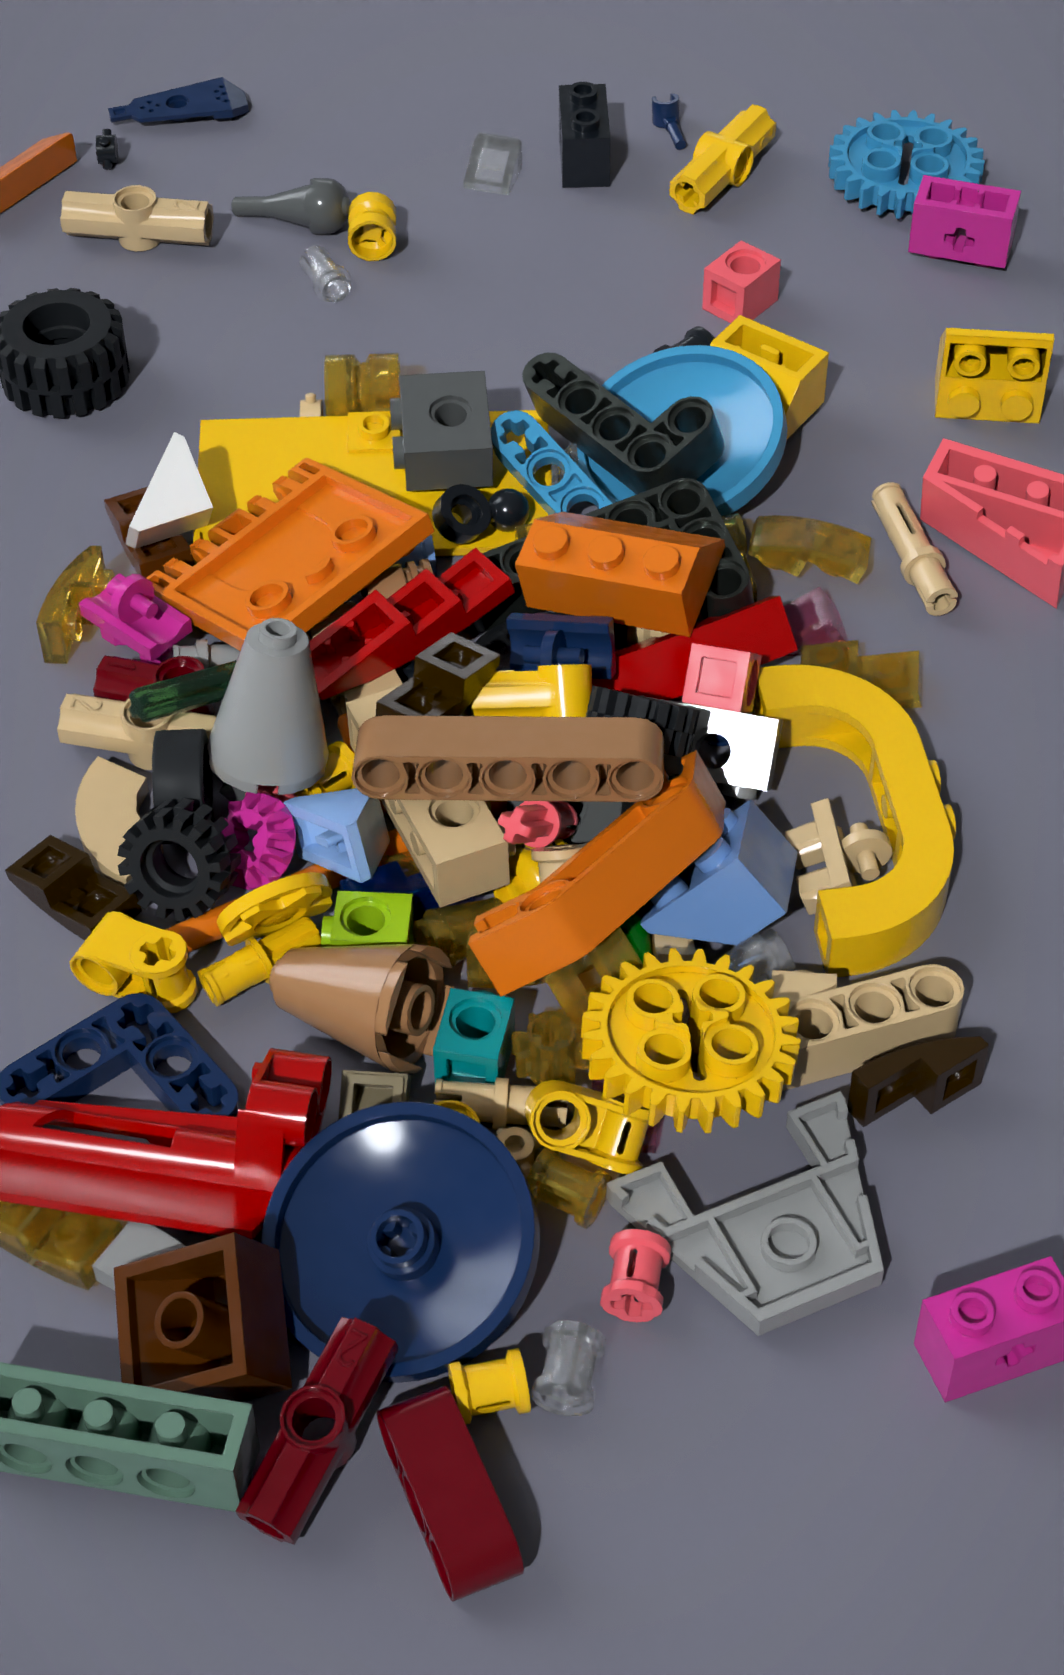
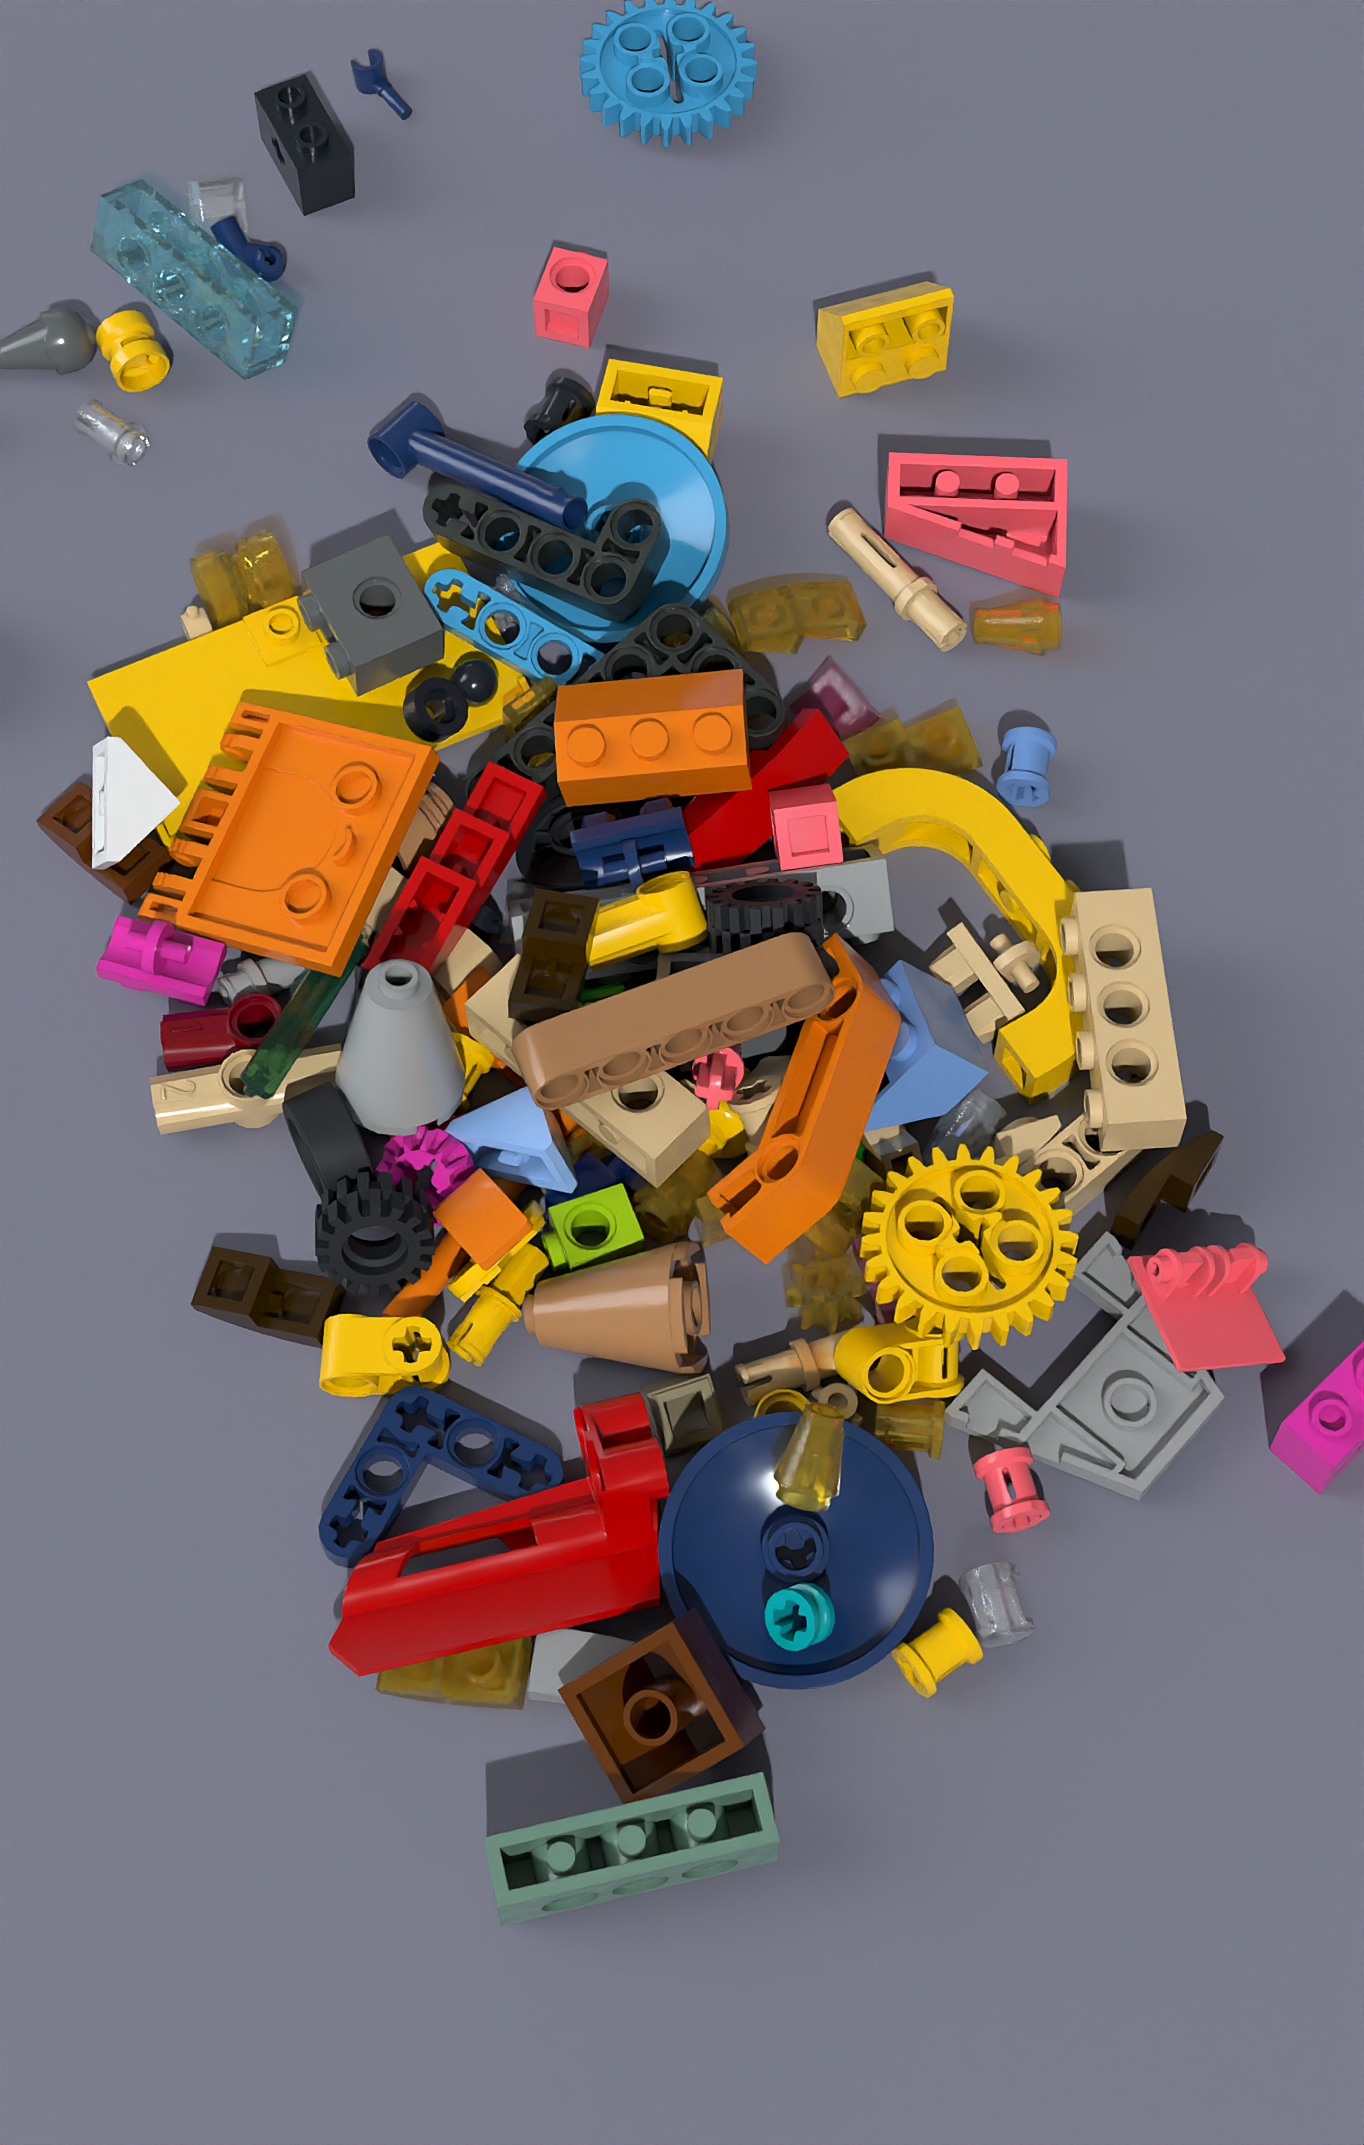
camera: 25 degrees left, 15 degrees up
(60, 617) = (81, 947): clear yellow slope -> none
(105, 811) = (260, 1204): tan tile -> none
(268, 867) = (483, 1219): none -> orange panel
(298, 1468) = (812, 1807): dark red piece -> none
(371, 1295) = (786, 1628): none -> teal bush
(442, 1151) = (812, 1460): none -> clear yellow cone
(445, 191) = (193, 279): none -> clear light blue brick
(450, 1493) = (952, 1765): dark red beam -> none
(474, 1037) = (755, 1336): teal brick -> none
(499, 197) = (262, 259): none -> dark blue arm
(564, 336) = (417, 438): none -> dark blue piece
(722, 159) = (468, 126): yellow piece -> none
(906, 1183) = (1208, 1305): none -> coral hinge
(933, 913) = (1124, 928): none -> tan brick
(962, 706) = (1026, 766): none -> medium blue bush
(964, 221) = (771, 138): dark pink brick -> none
(1010, 612) = (1021, 626): none -> clear yellow cone

